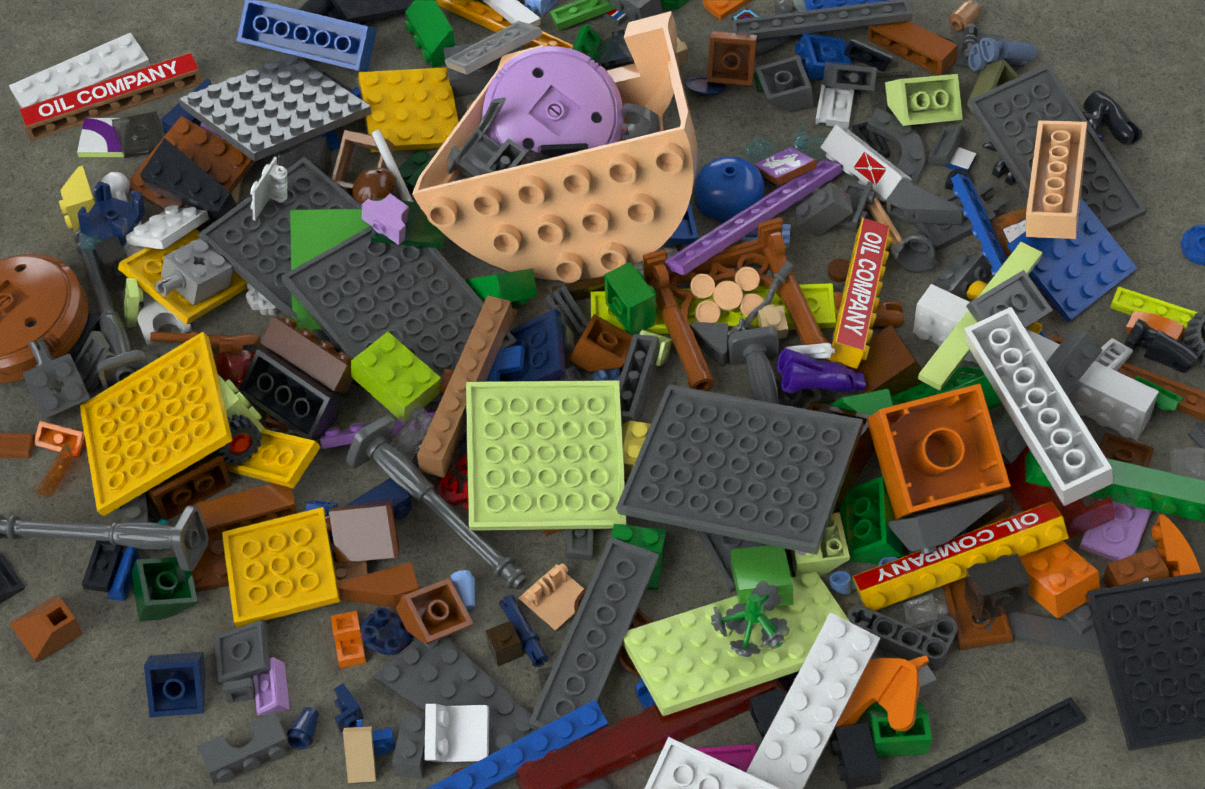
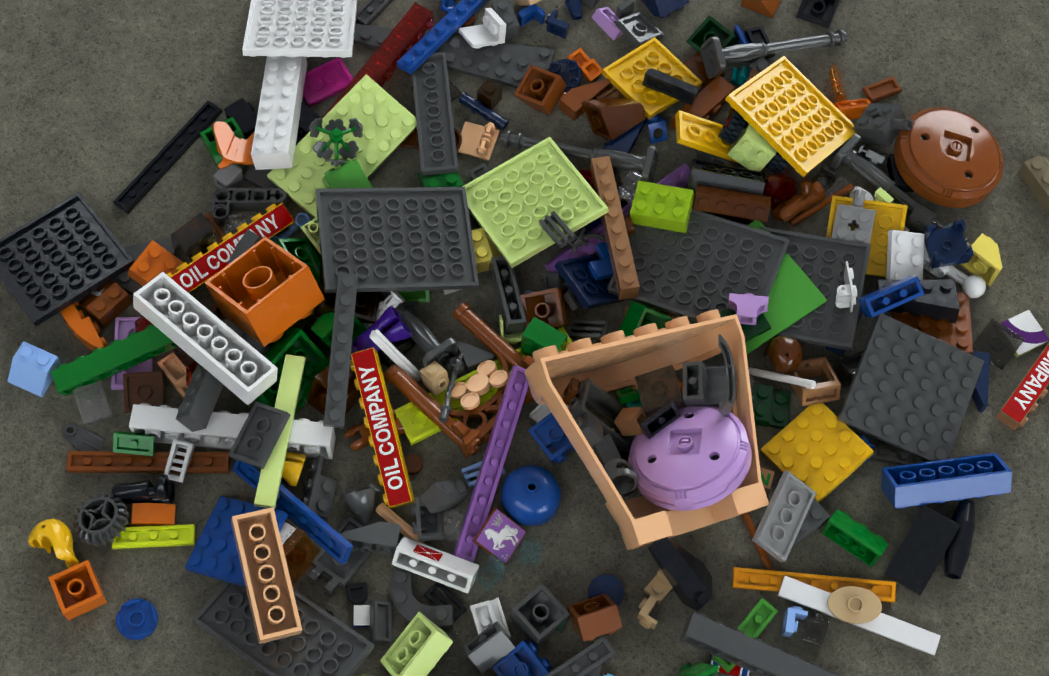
camera: 145 degrees right, 10 degrees up
(225, 167) = (891, 296): none -> blue brick
(267, 534) = (670, 86): none -> black panel
(465, 587) = (535, 119): light blue cone -> none
(541, 364) = (549, 219): none -> dark grey tile
(587, 41) = (724, 585): green plate -> none
(872, 360) = (340, 350): none -> dark grey plate

